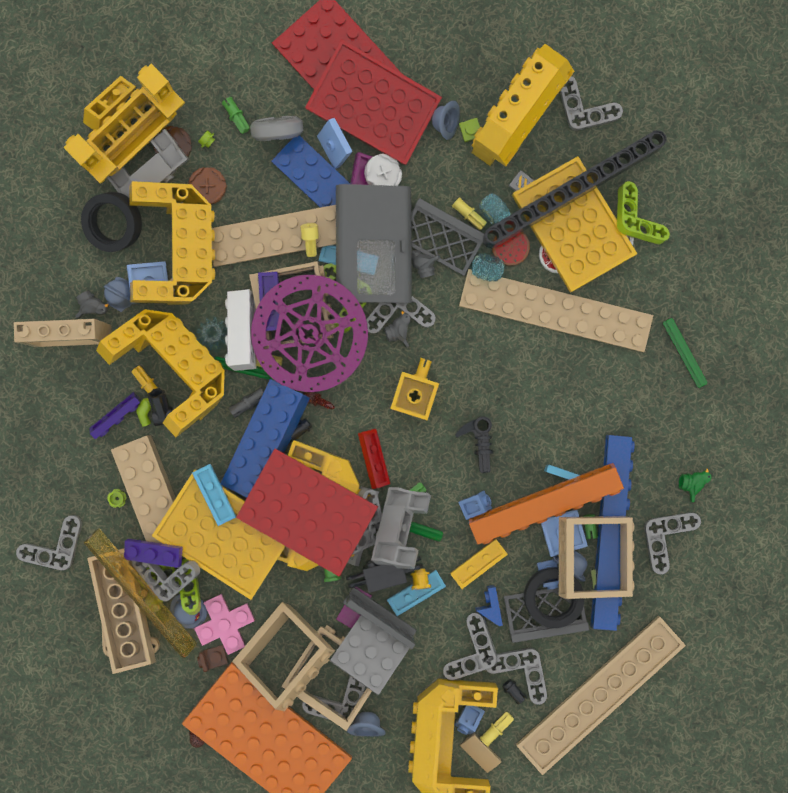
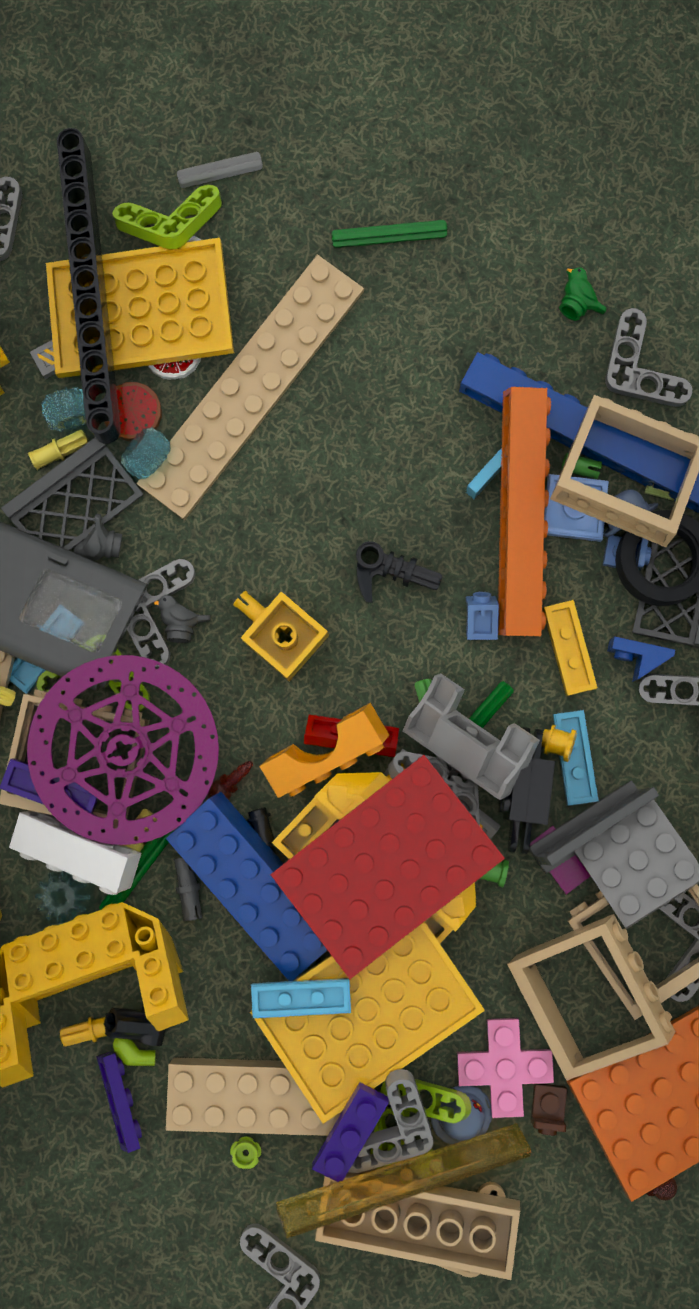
camera: 55 degrees left, 5 degrees down
(340, 433) = (293, 768): none -> light orange arch
(682, 234) = (219, 169): none -> light grey axle

